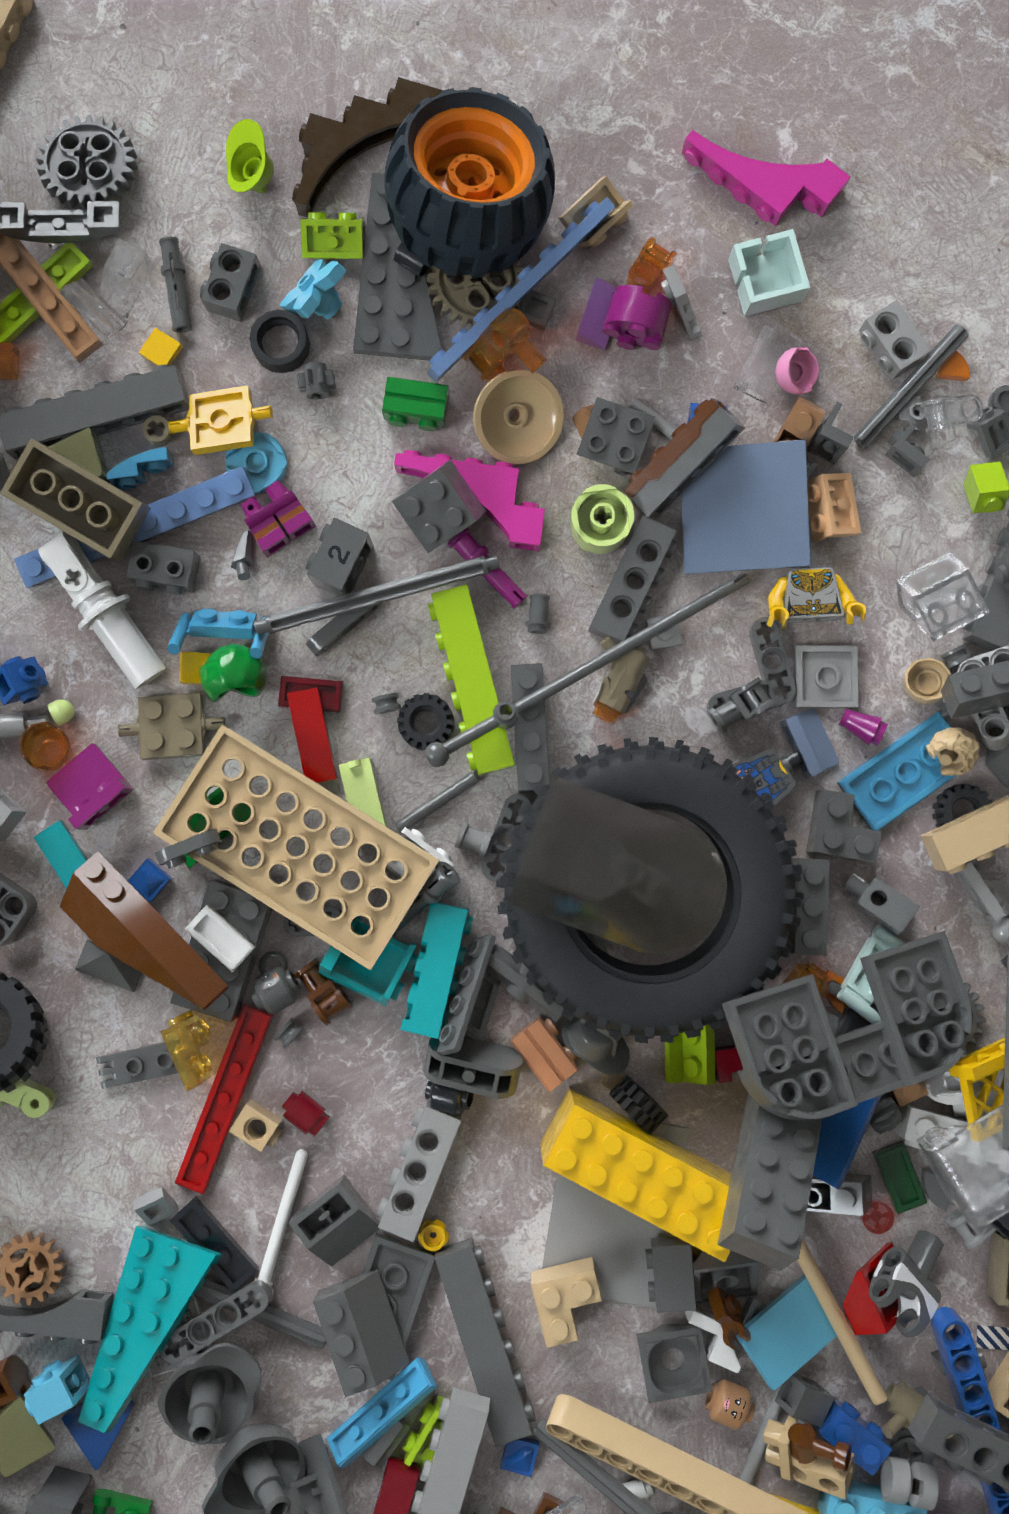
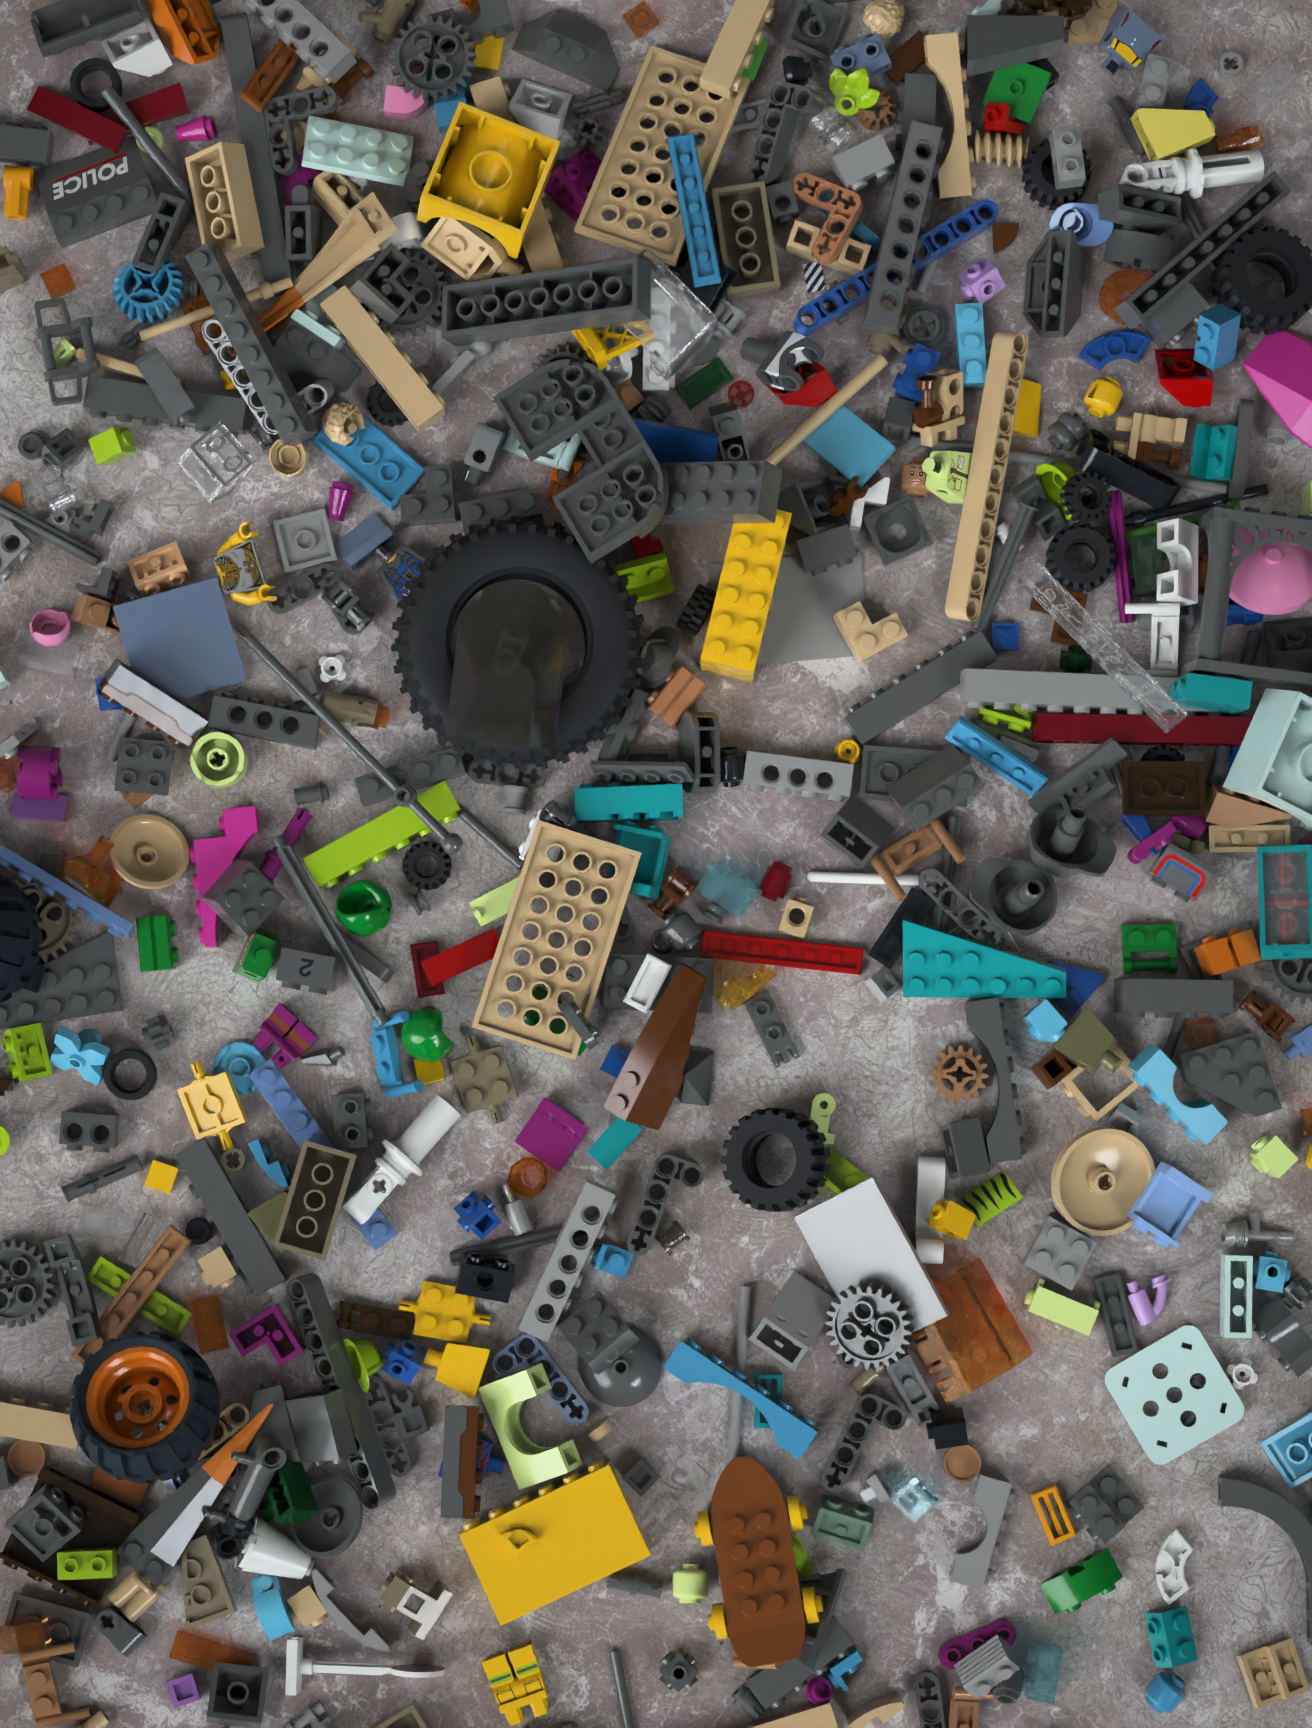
camera: 100 degrees left, 0 degrees up
(40, 382) = (218, 1268): none -> tan brick
(61, 711) = (494, 1174): yellowish green hinge -> none
(89, 373) = (199, 1230): none -> black plate
(298, 1281) = (911, 851): none -> medium nougat plate
(308, 1054) = (726, 889): none -> clear light blue piece
(373, 510) = (257, 955): none -> green torso
(394, 639) = (364, 908): none -> green piece
(681, 665) = (326, 663): none -> white plate
(724, 1445) = (947, 474): none -> yellowish green torso
(909, 1483) = (939, 332): light grey wheel -> none

